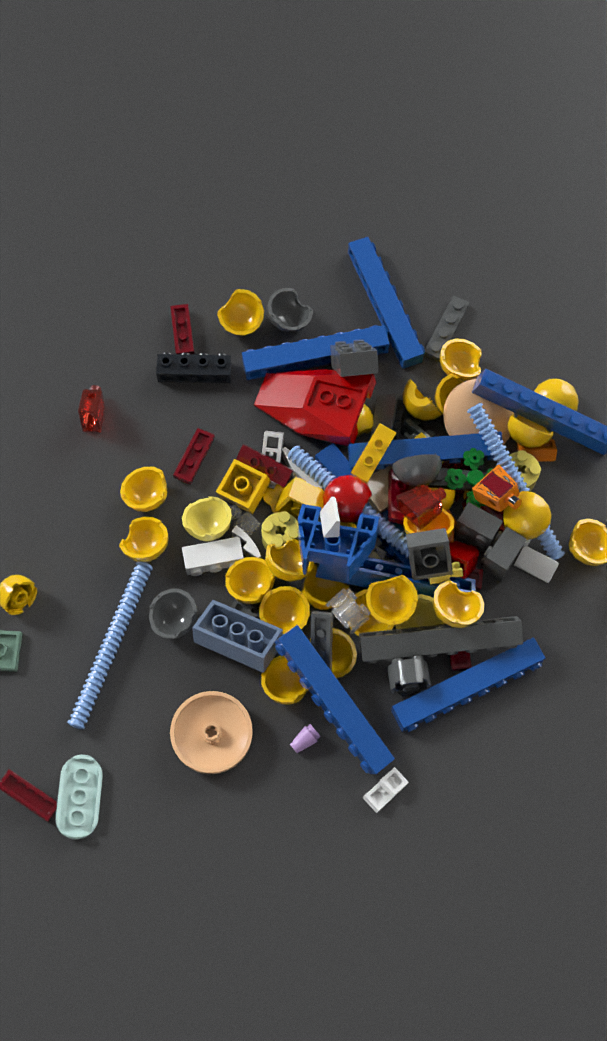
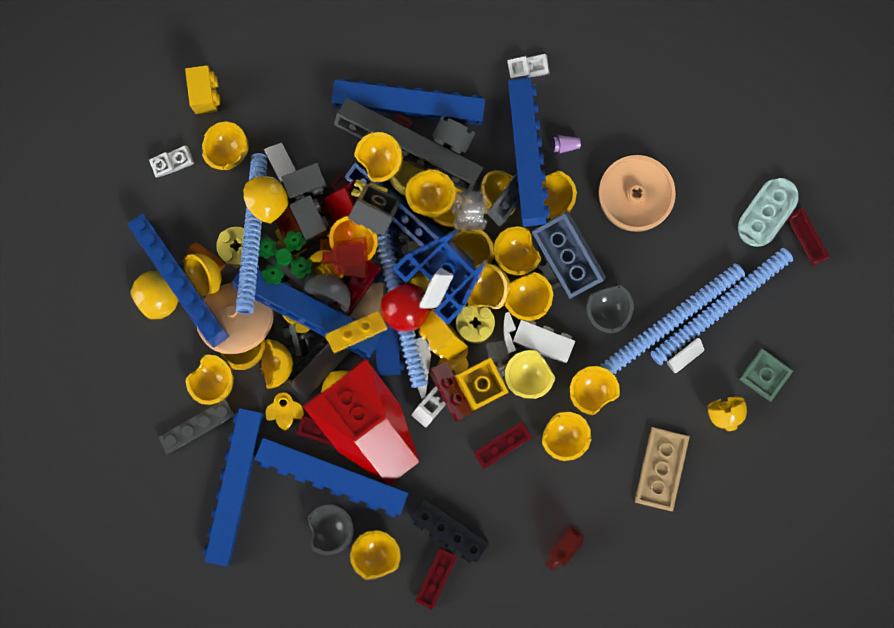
camera: 145 degrees left, 15 degrees up
(47, 519) = (662, 469): none -> tan tile
(72, 685) = (721, 306): none -> light blue piece
(82, 622) = (686, 355): none -> white slope
(354, 358) = (310, 433): dark grey brick -> none
(387, 376) = (284, 413): none -> yellow plate
(497, 490) = (276, 227): orange torso -> none

